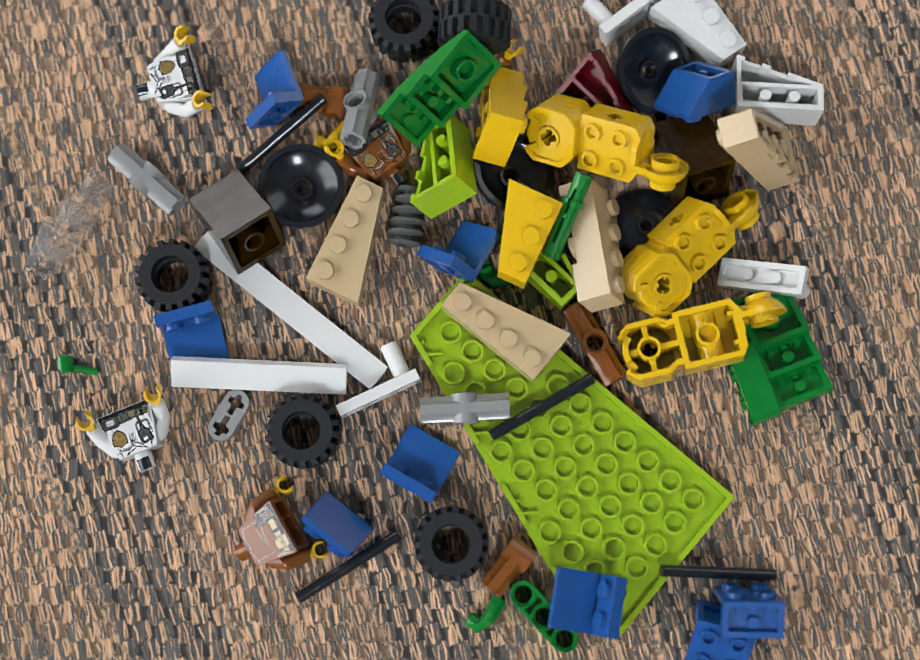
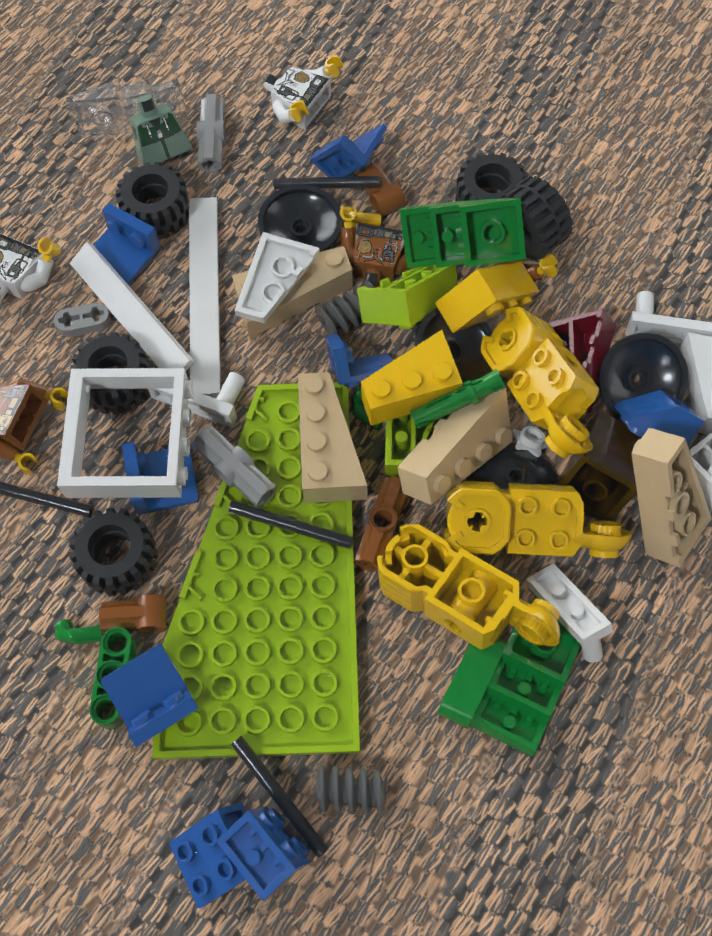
camera: 45 degrees right, 15 degrees down
(66, 365) = (28, 192): green hand -> none
(114, 223) = (157, 132): none -> sand green torso
(238, 221) = (232, 206): slope -> none
(337, 525) = (44, 450): blue slope -> none
(341, 251) = (272, 275): none -> white wing
(360, 108) = (386, 211): light grey piece -> none
(405, 417) = (71, 459): none -> white window
(624, 194) = (530, 439): none -> white plate
(754, 524) = (350, 790): none -> dark grey piece

